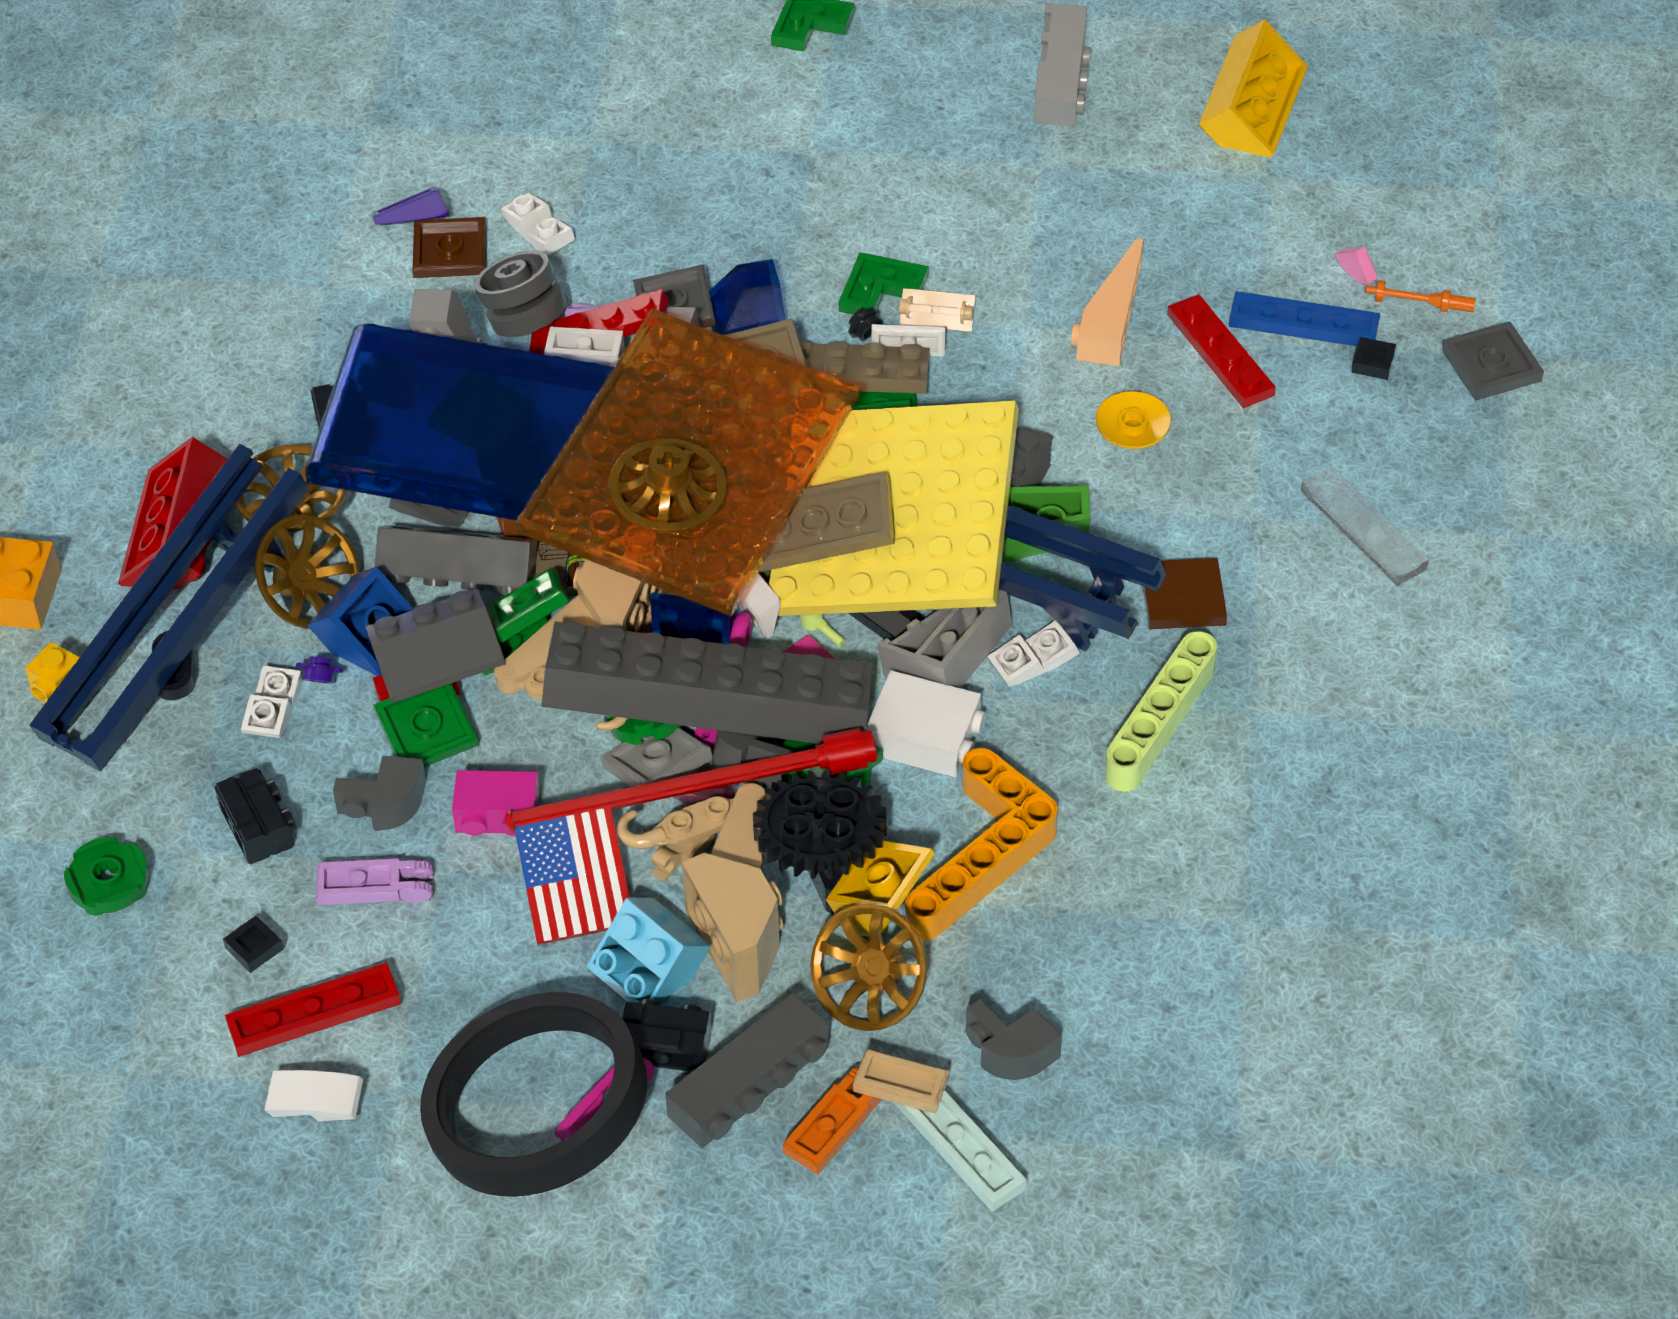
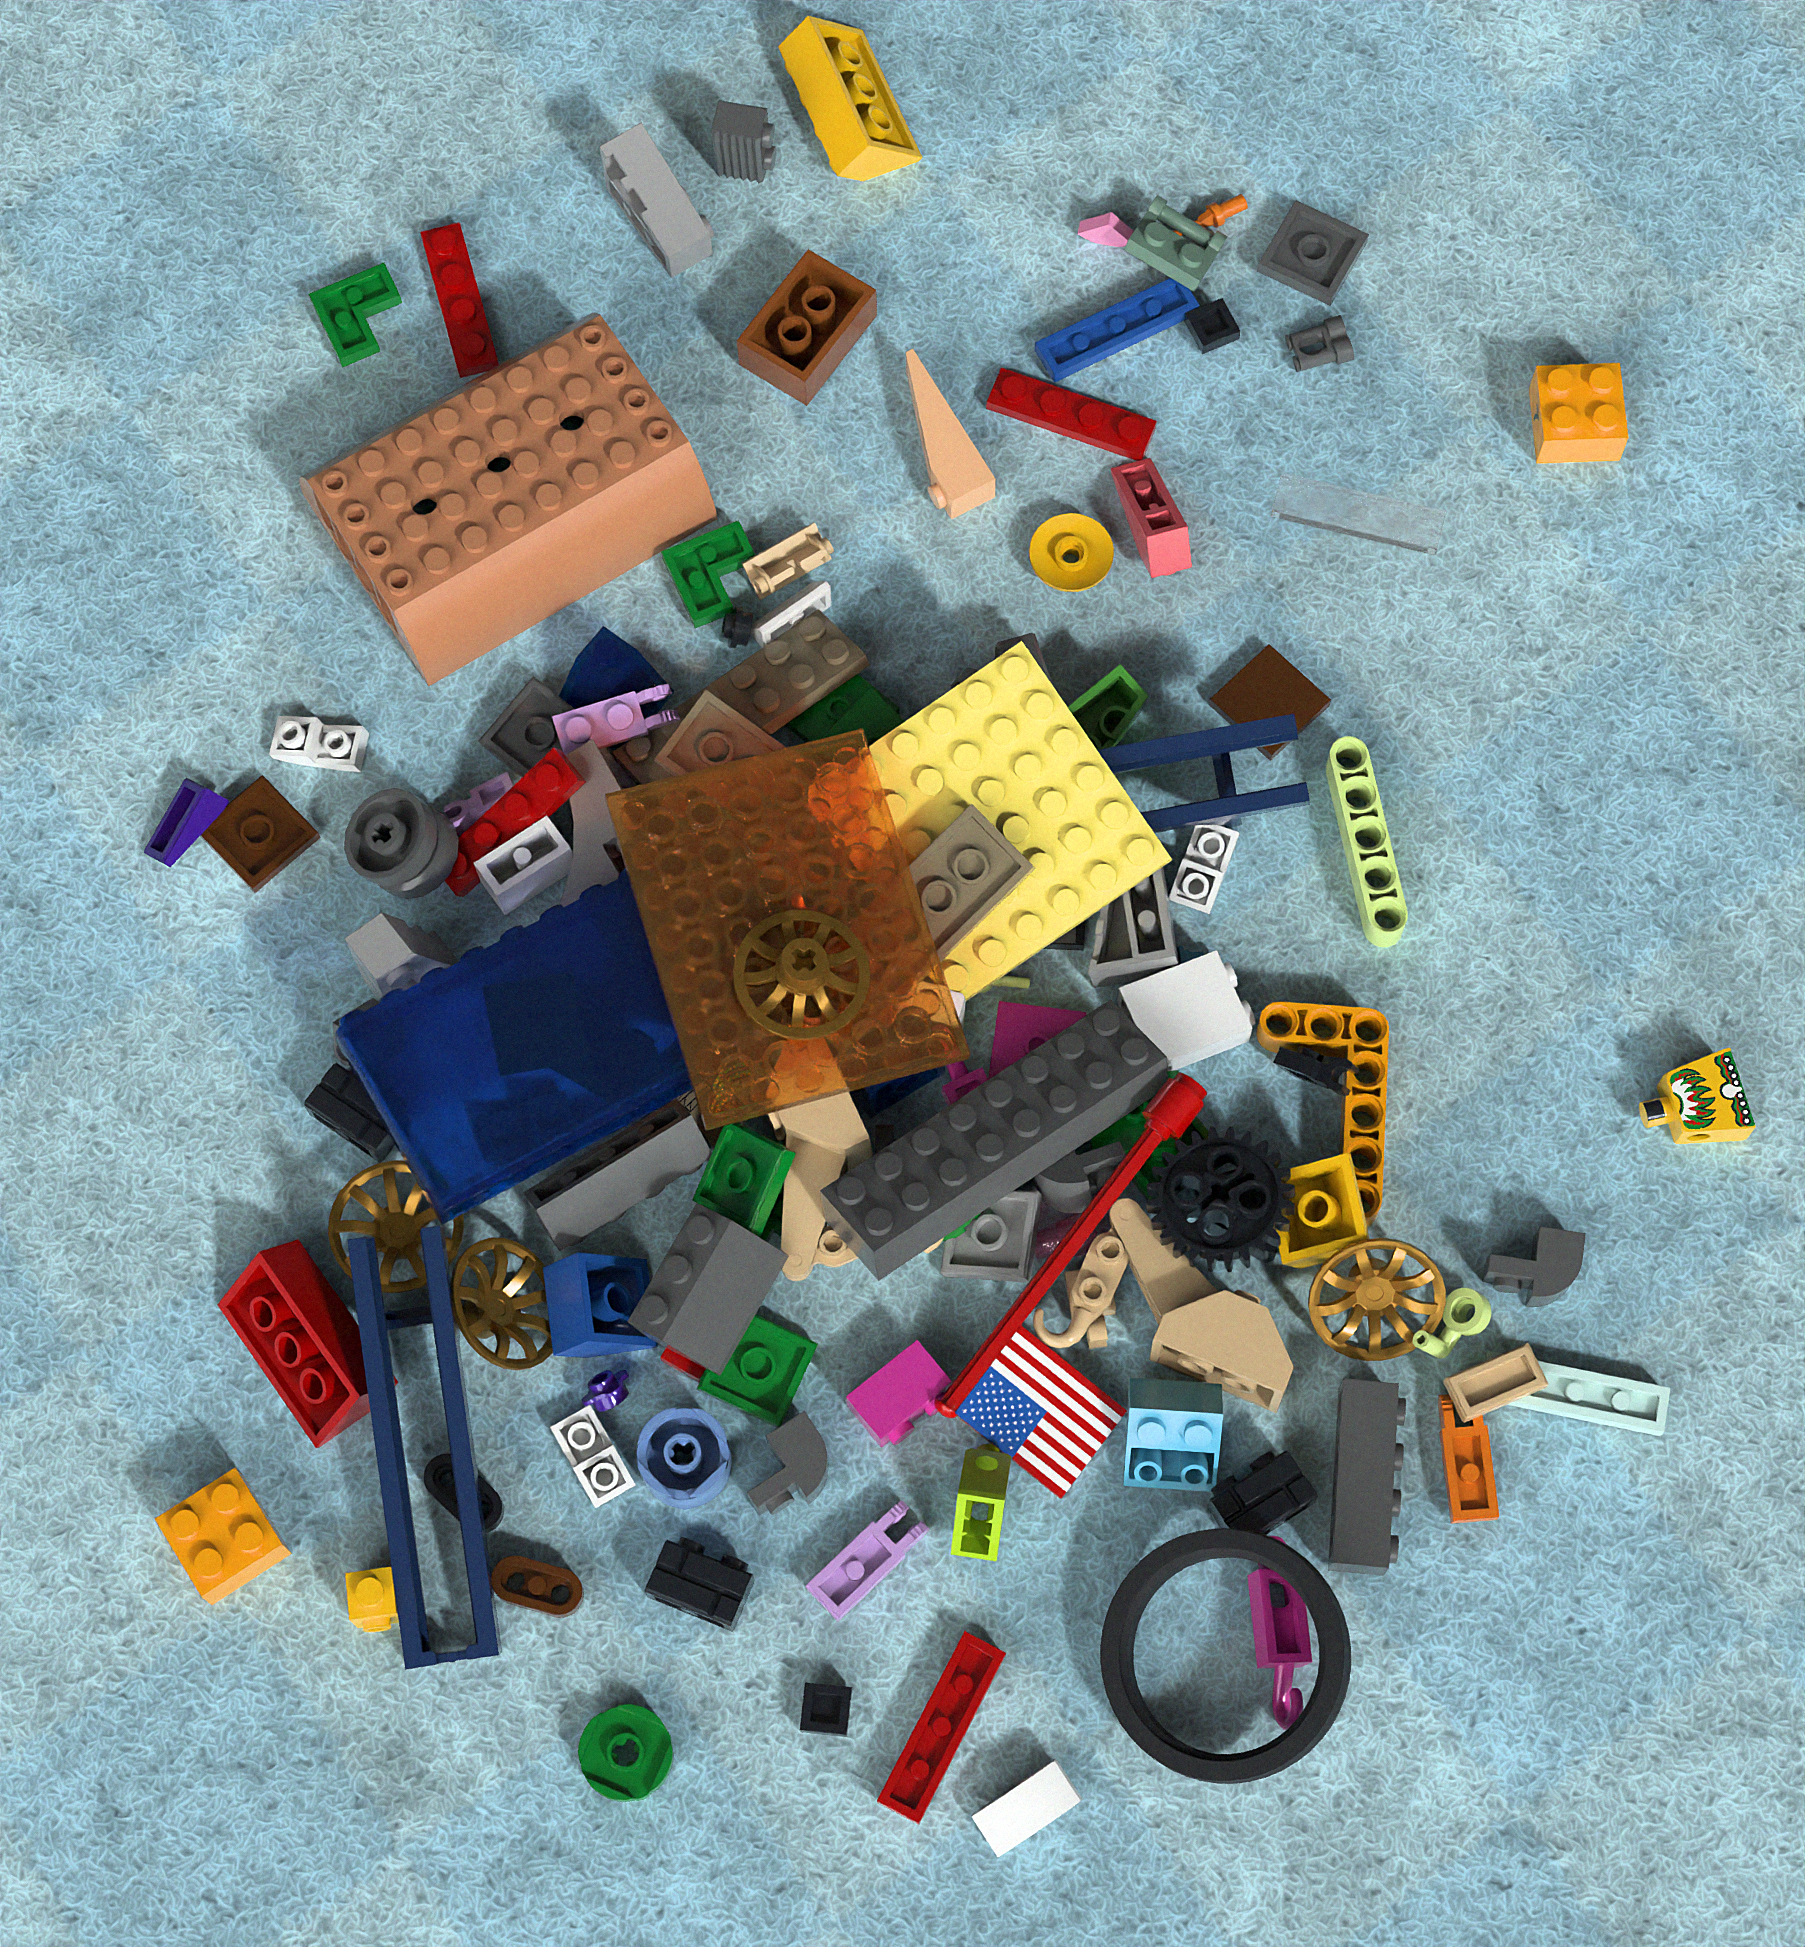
camera: 40 degrees left, 20 degrees up
(161, 748) = (539, 1585): none -> reddish brown plate
(321, 735) = (684, 1431): none -> medium blue brick
(475, 891) = (982, 1481): none -> lime torso
(725, 313) = (612, 720): none -> lavender hinge
(787, 185) = (519, 539): none -> nougat slope
(883, 54) = (459, 300): none -> red plate
(925, 1033) = (1454, 1317): none -> yellowish green plate
(976, 807) = (1308, 1067): none -> black plate
(1087, 190) = (807, 327): none -> dark orange brick
(1151, 66) = (742, 141): none -> dark grey brick
(1209, 437) = (1153, 518): none -> coral slope
(1240, 1026) = (1701, 1102): none -> torso
(1385, 297) = (1170, 251): none -> sand green plate
(1456, 417) = (1335, 340): none -> dark grey piece
(1590, 563) = (1578, 413): none -> light orange brick

